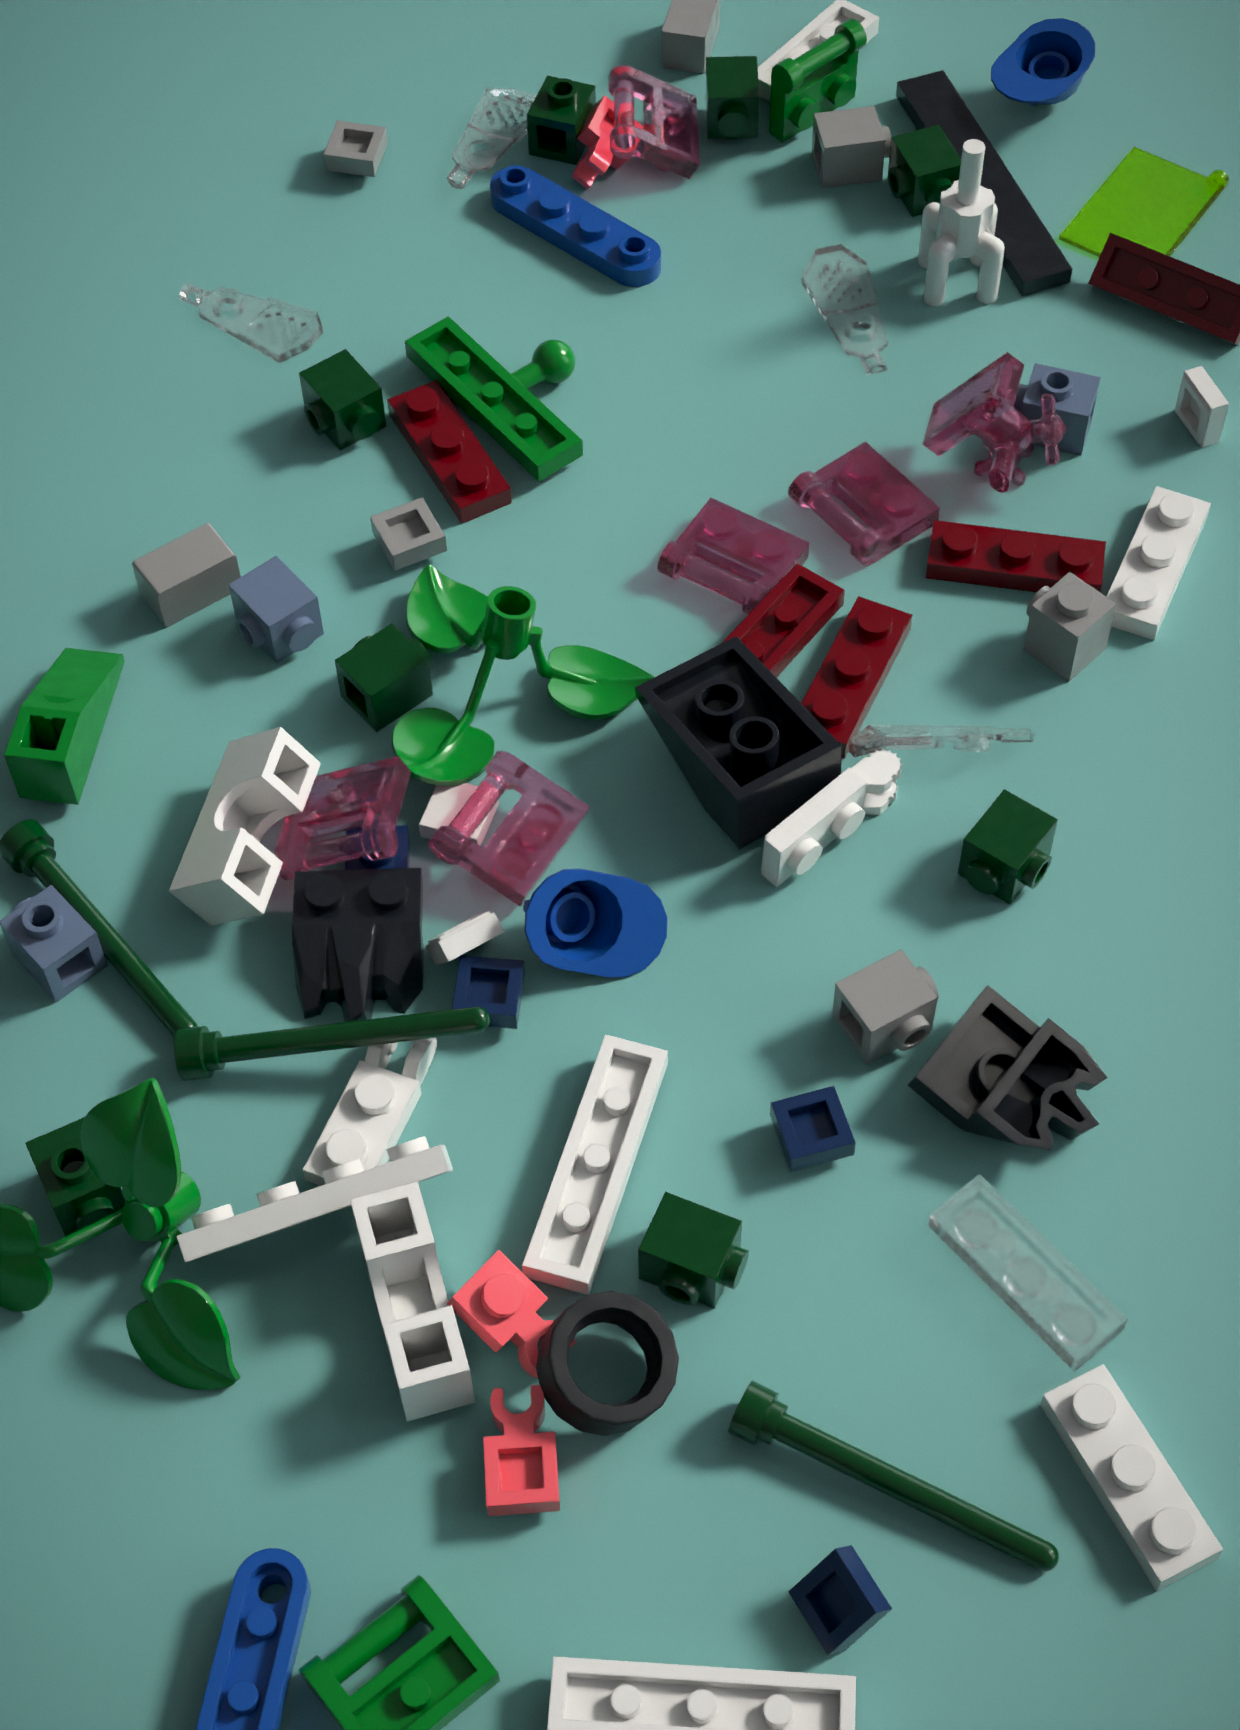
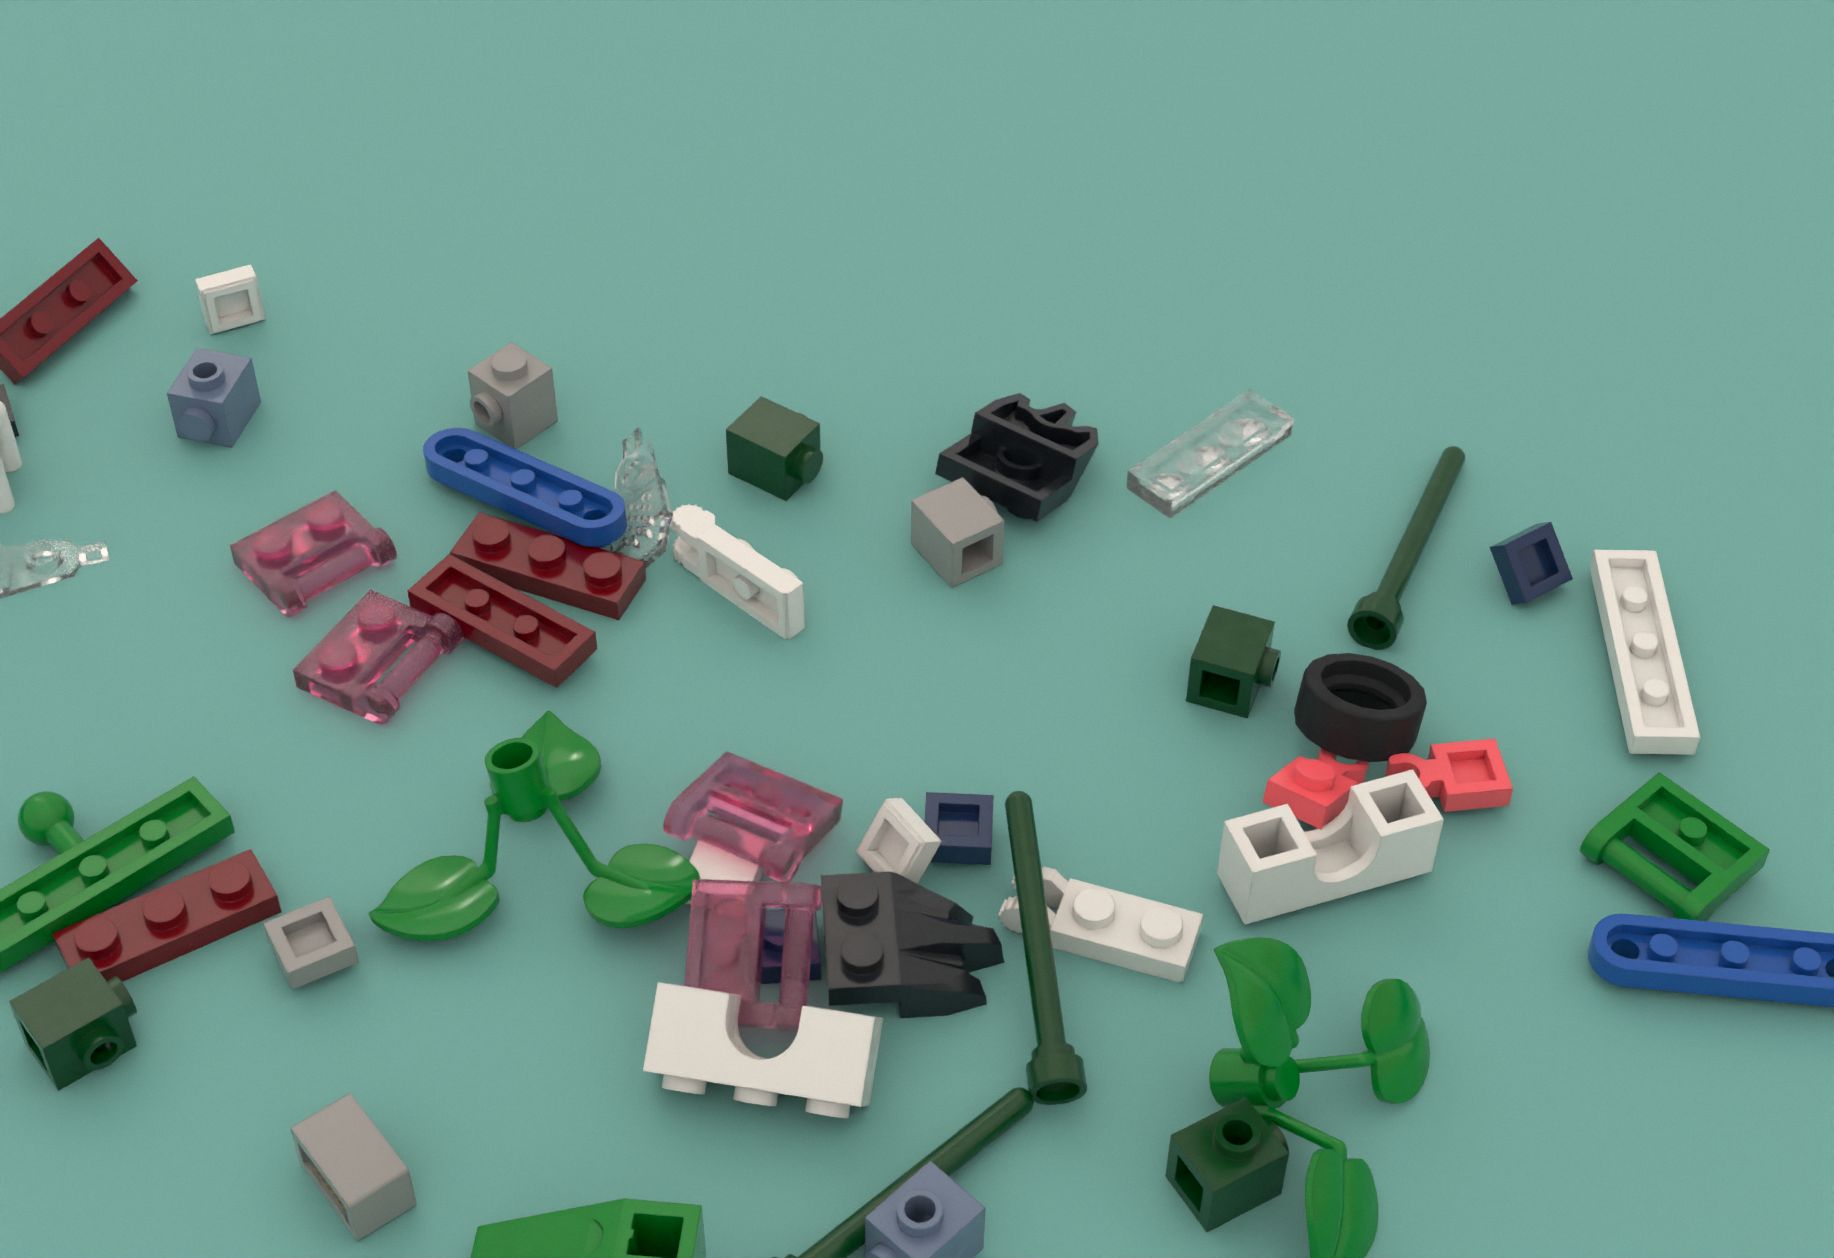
camera: 95 degrees left, 10 degrees down
(275, 610) = (425, 1060): sand blue brick -> none
(287, 1207) = (1219, 889): white plate -> none
(385, 676) = (537, 944): dark green brick -> none
(595, 923) = (873, 746): blue piece -> none
(595, 1165) = (1144, 735): white plate -> none
(740, 739) = (657, 618): black slope -> none
(812, 1128) = (1089, 584): dark blue plate -> none
(941, 645) = (526, 487): none -> blue plate
(986, 410) = (243, 420): clear pink piece -> none
(1011, 557) = (395, 462): dark red plate -> none
(1131, 1477) = (1374, 408): white plate -> none
(1156, 561) = (409, 347): white plate -> none

